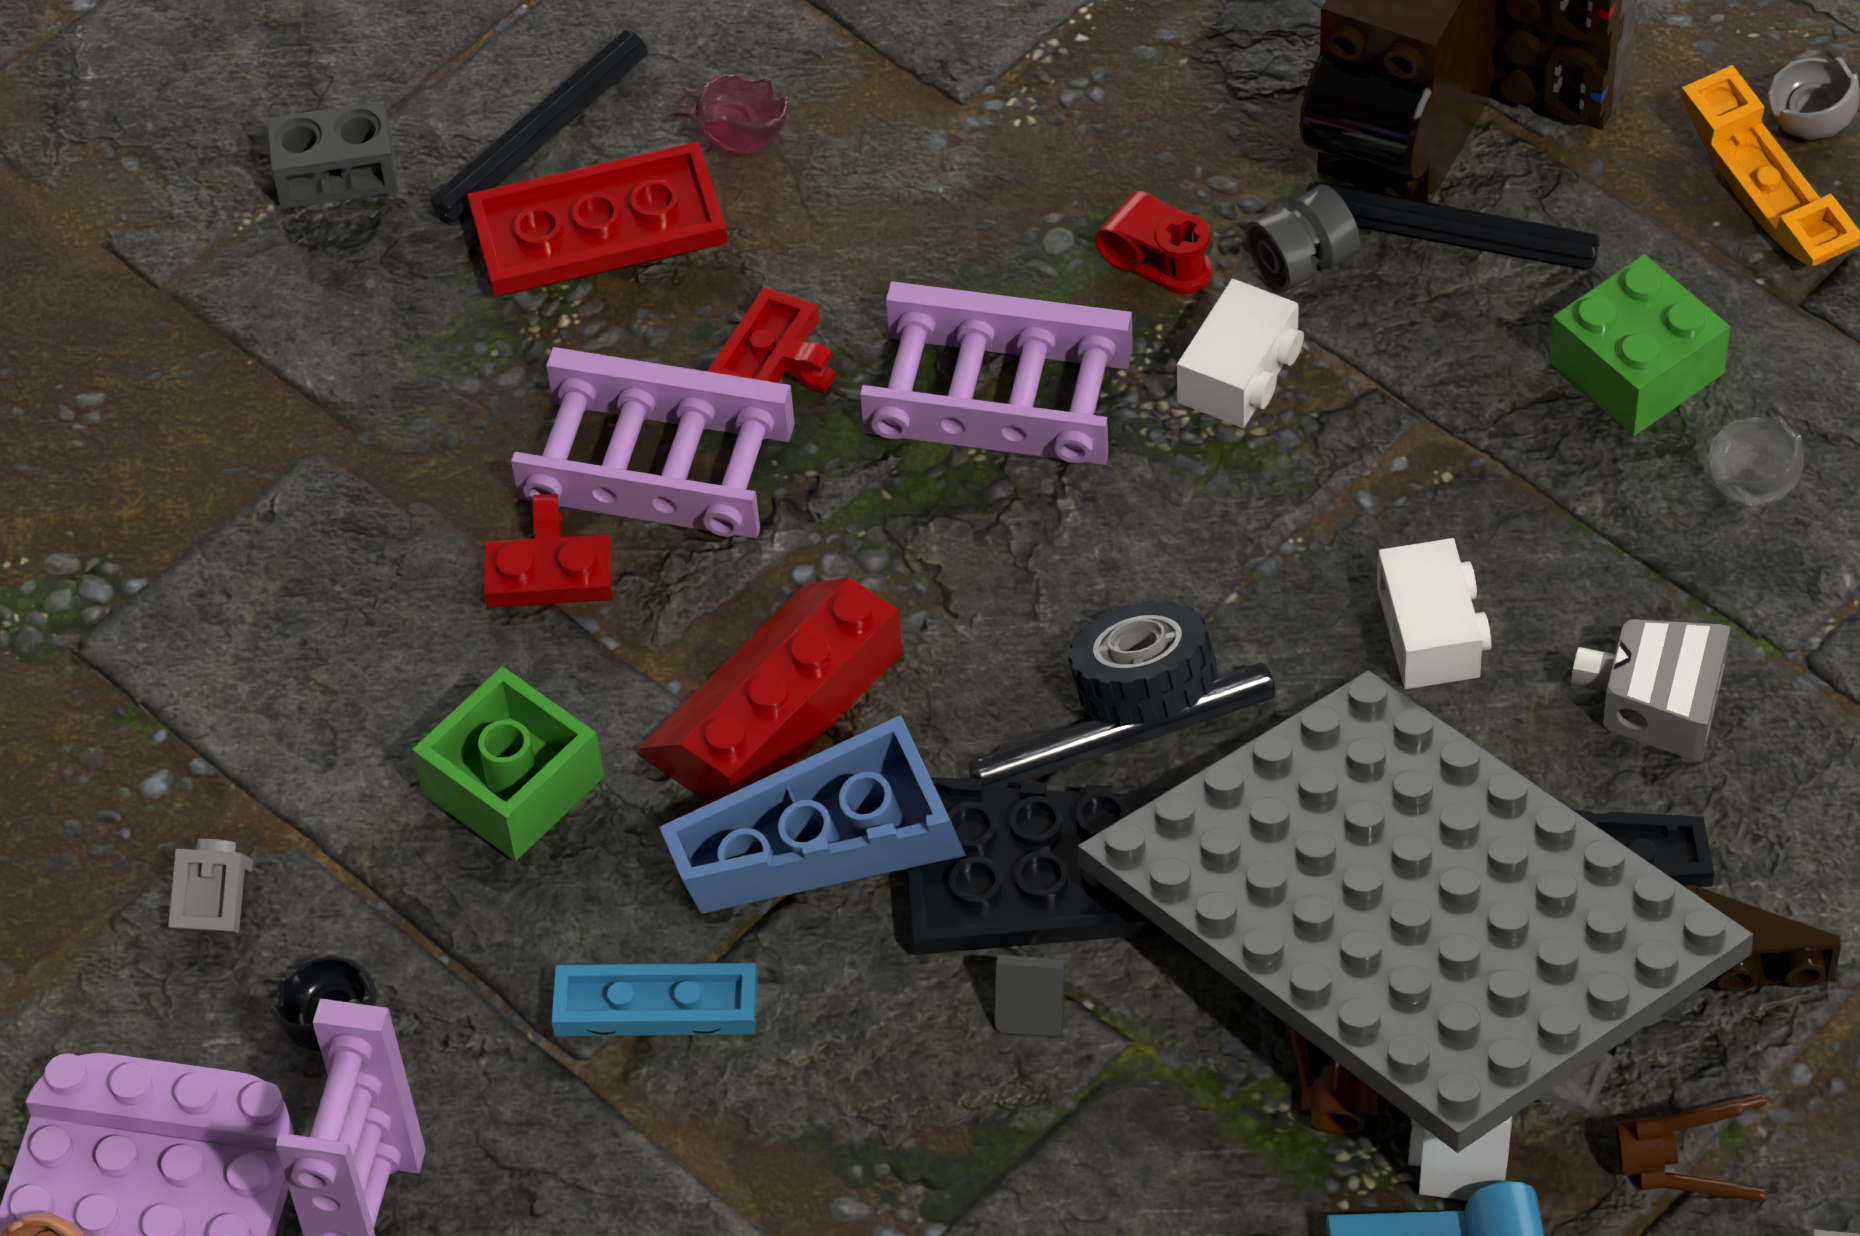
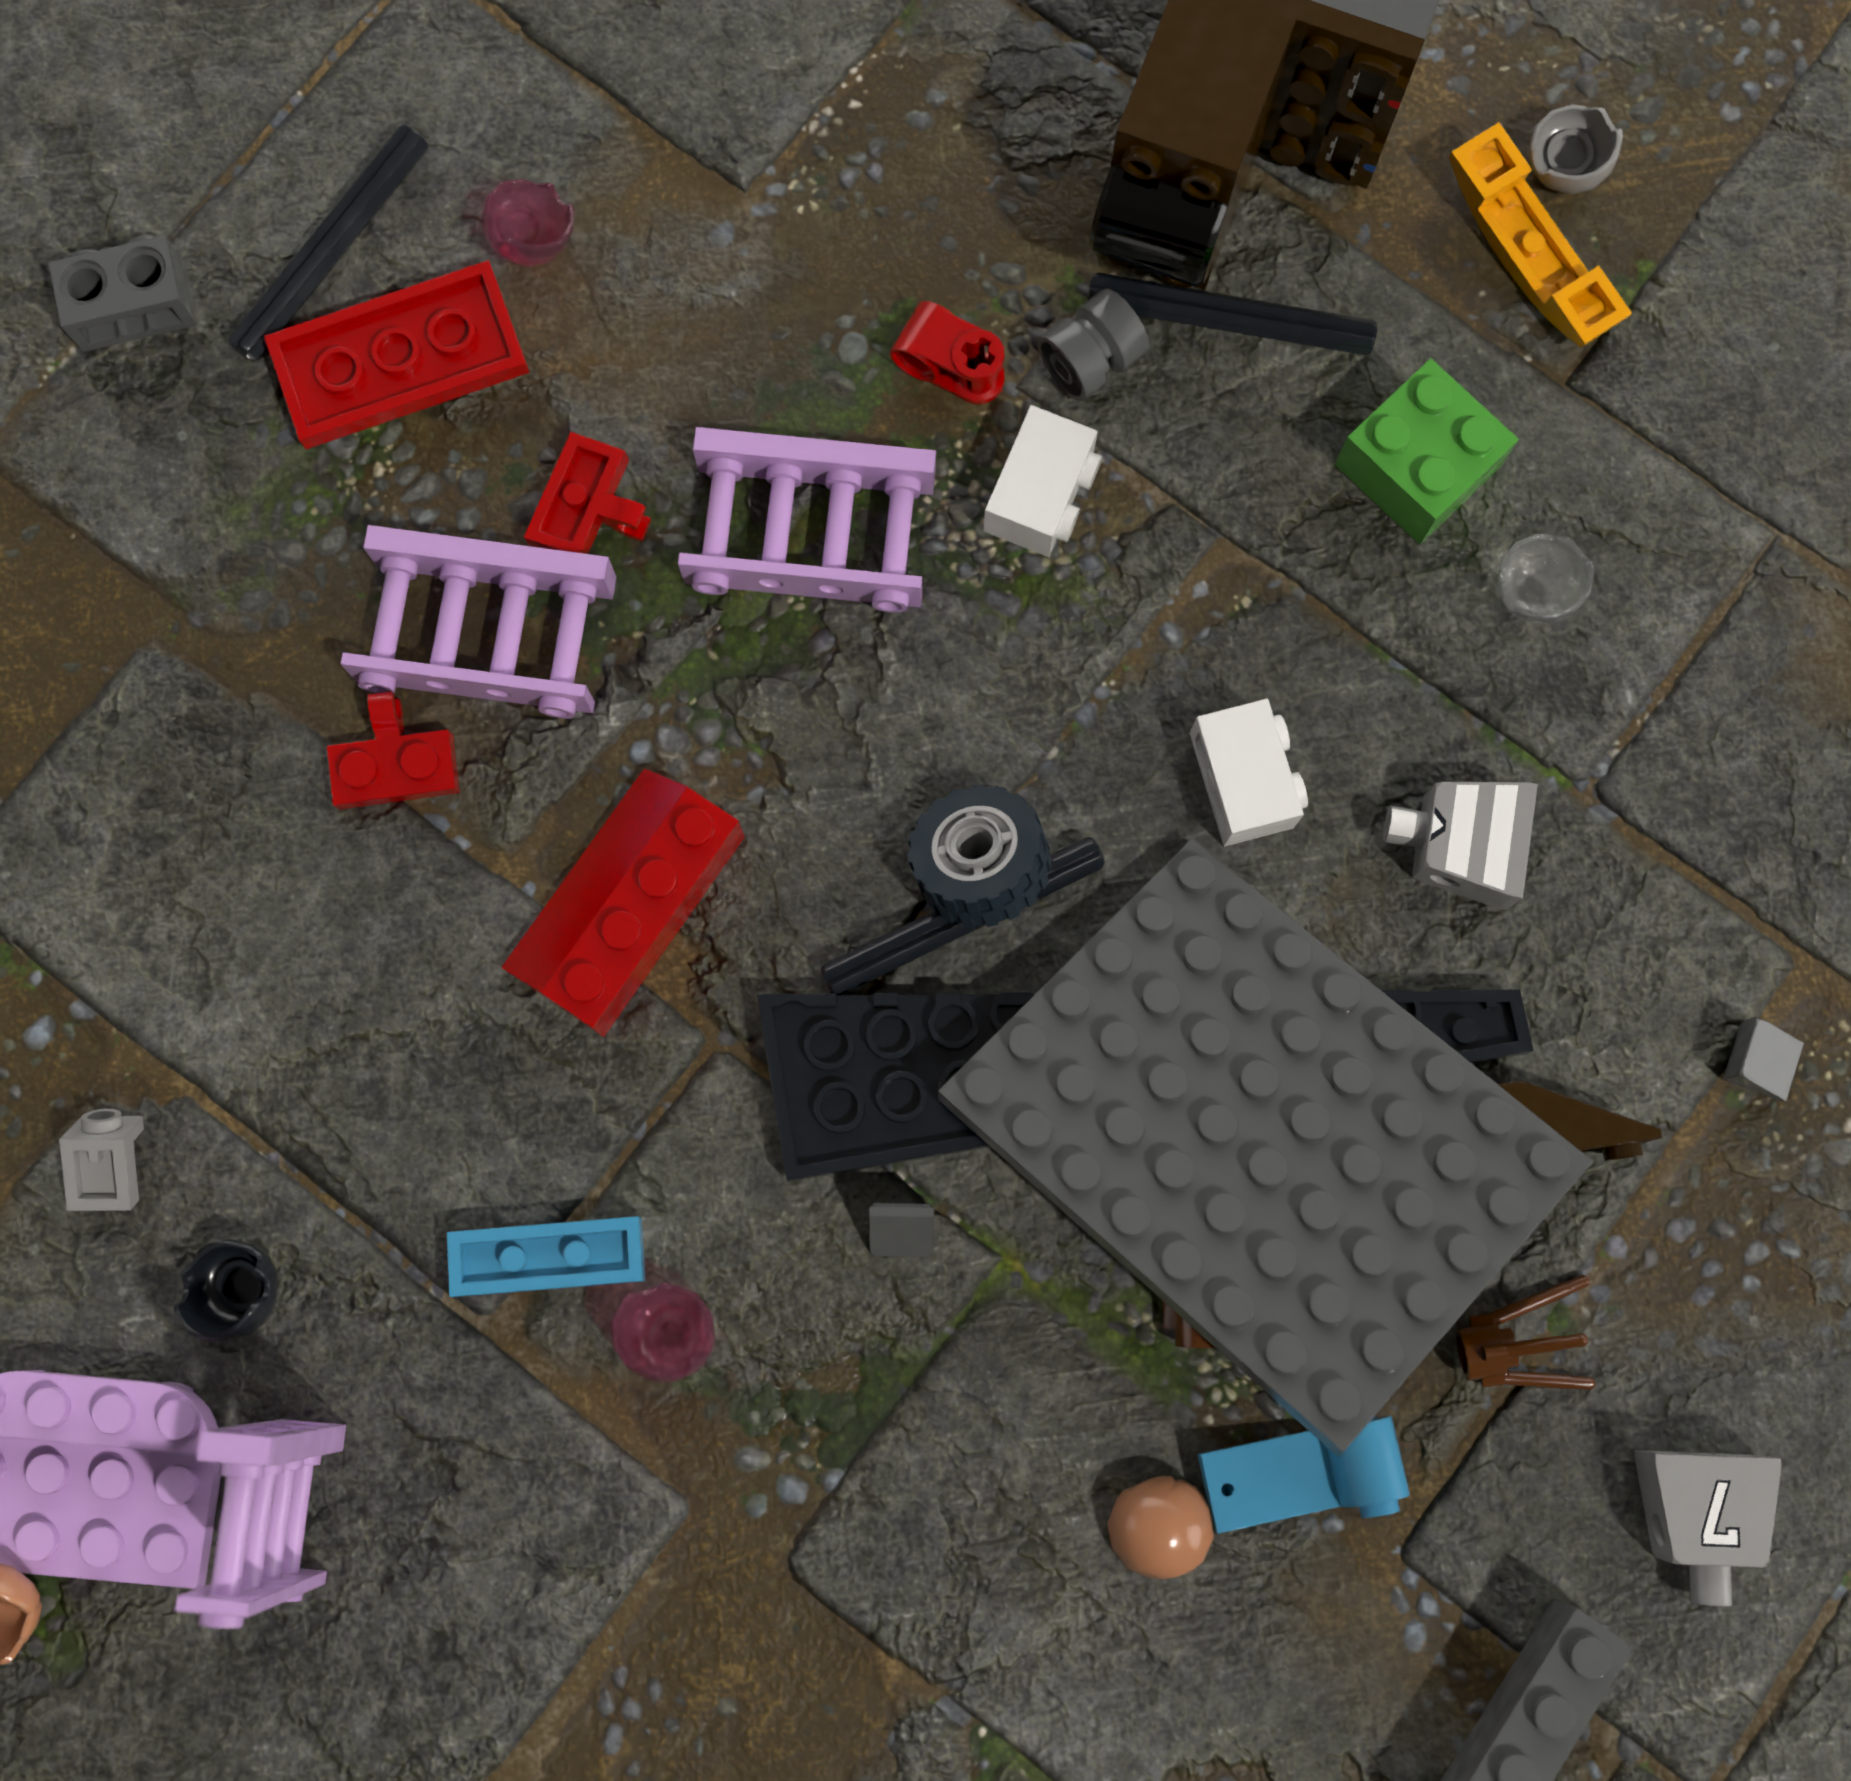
camera: 10 degrees left, 25 degrees up
(508, 763) = (374, 1012): bright green brick -> none
(770, 1069) = (663, 1333): none -> clear pink hair
(816, 824) = (698, 1065): medium blue wedge -> none

